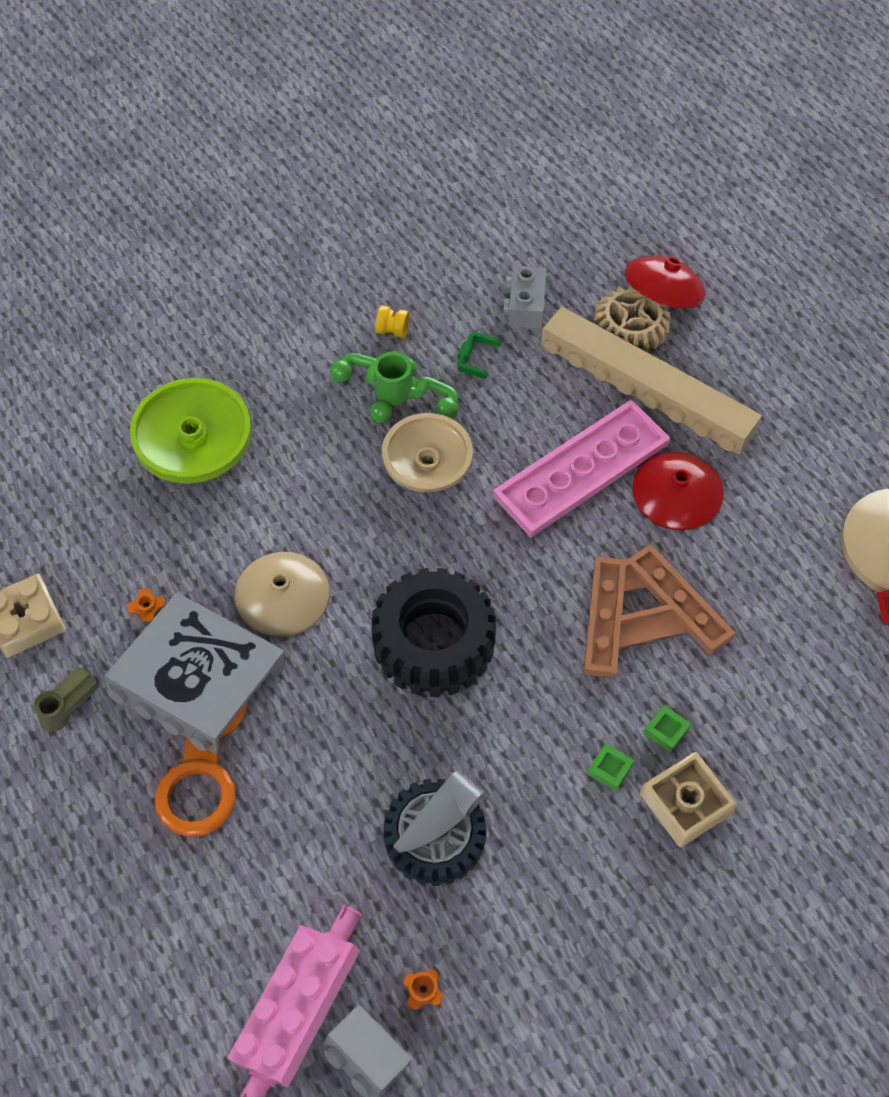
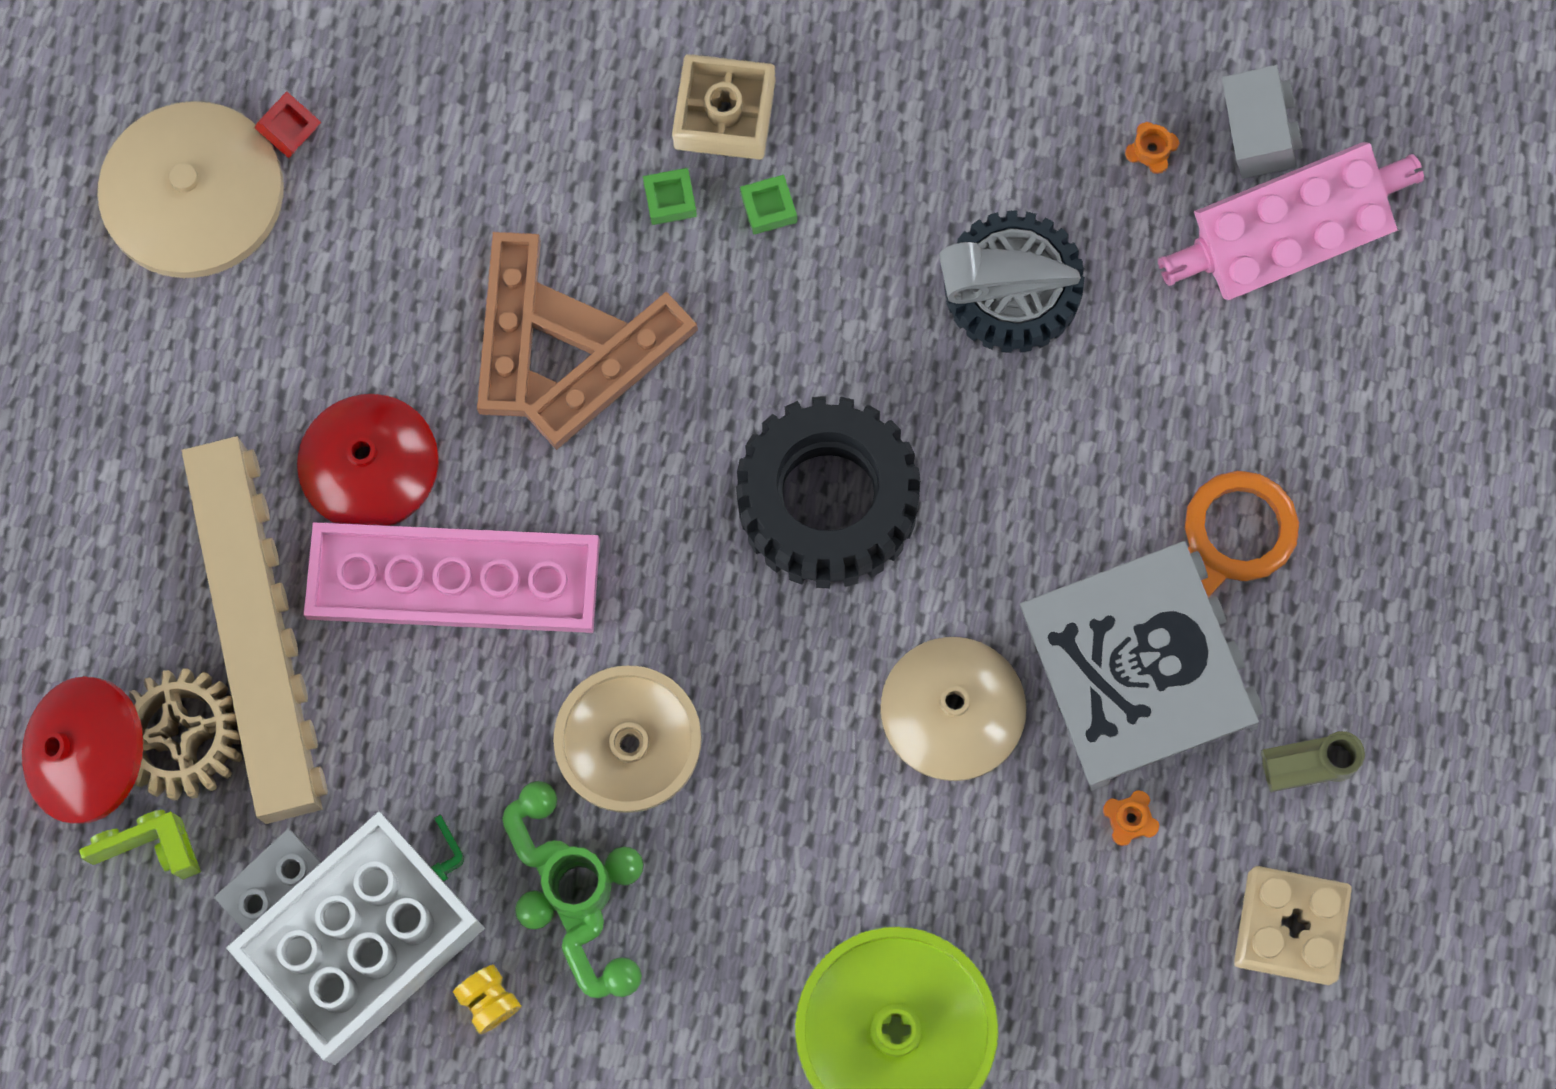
camera: 135 degrees left, 15 degrees up
(469, 297) = (355, 939): none -> white slope
(592, 283) = (173, 851): none -> lime bracket

